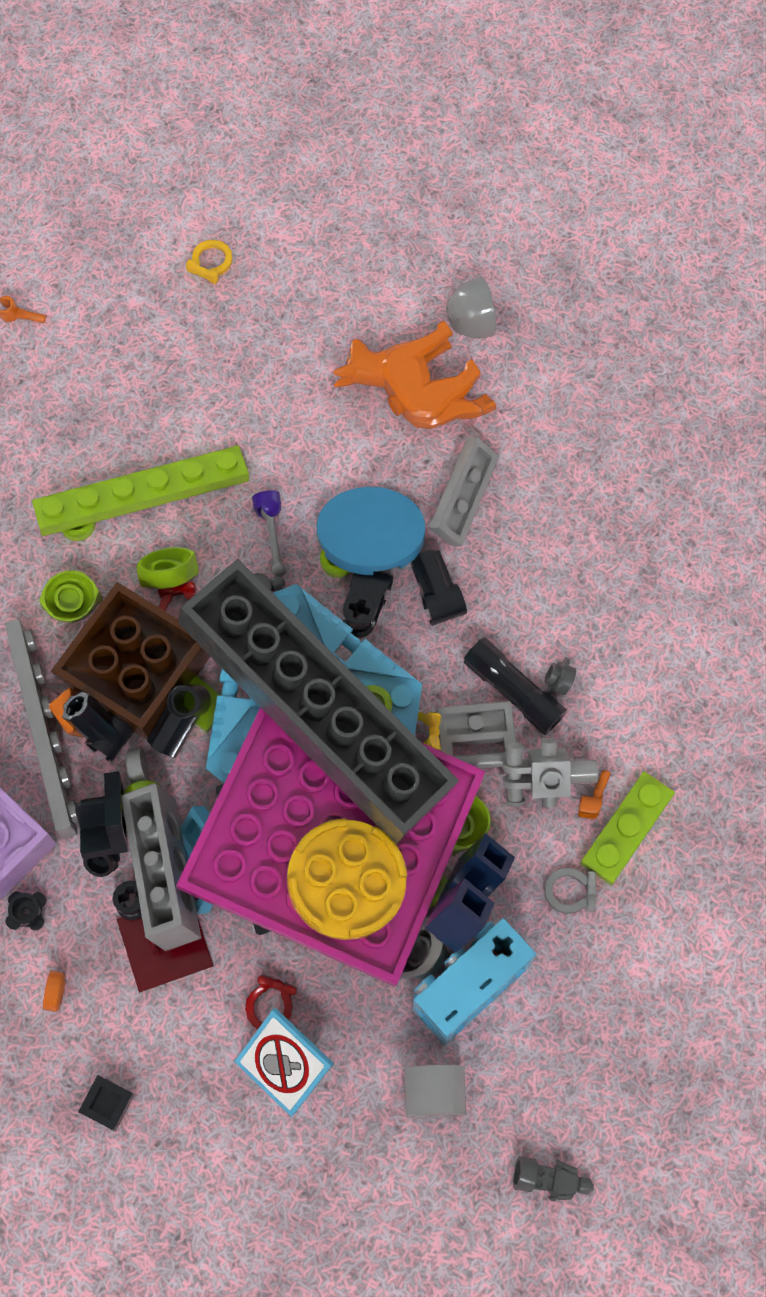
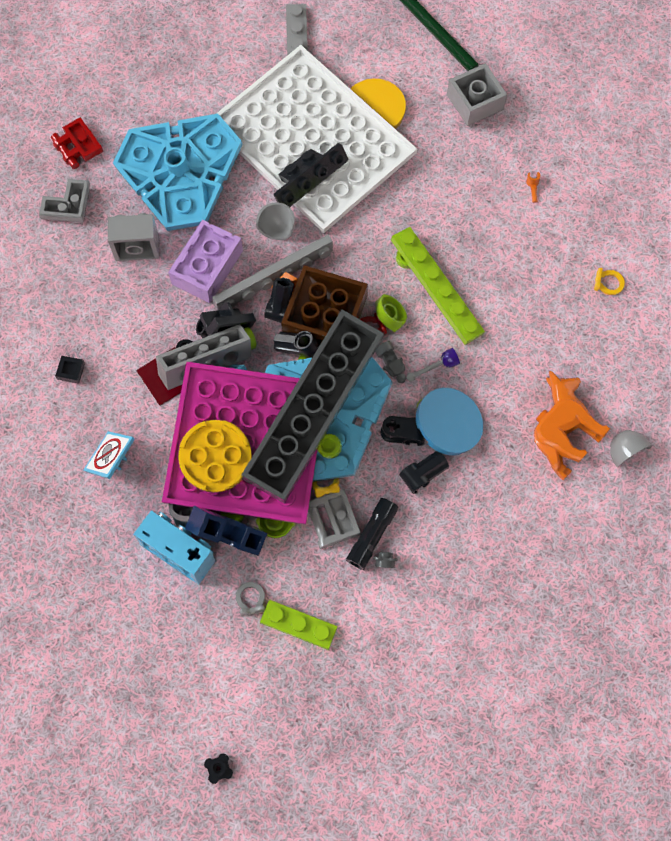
camera: 75 degrees right, 0 degrees up
(19, 901) = (167, 292): black plate -> none
(54, 991) = (125, 324): orange tile -> none
(70, 596) = (357, 265): lime hat -> none
(137, 765) = (263, 331): light grey tile -> none
(266, 983) = (153, 448): red piece -> none
(435, 1091) = (107, 542): light grey piece -> none
(464, 491) = (495, 472): light grey plate -> none
(545, 773) = (318, 563): light grey piece -> none
(559, 1181) = (73, 629): dark grey piece -> none
(590, 806) = (306, 599): orange hand -> none

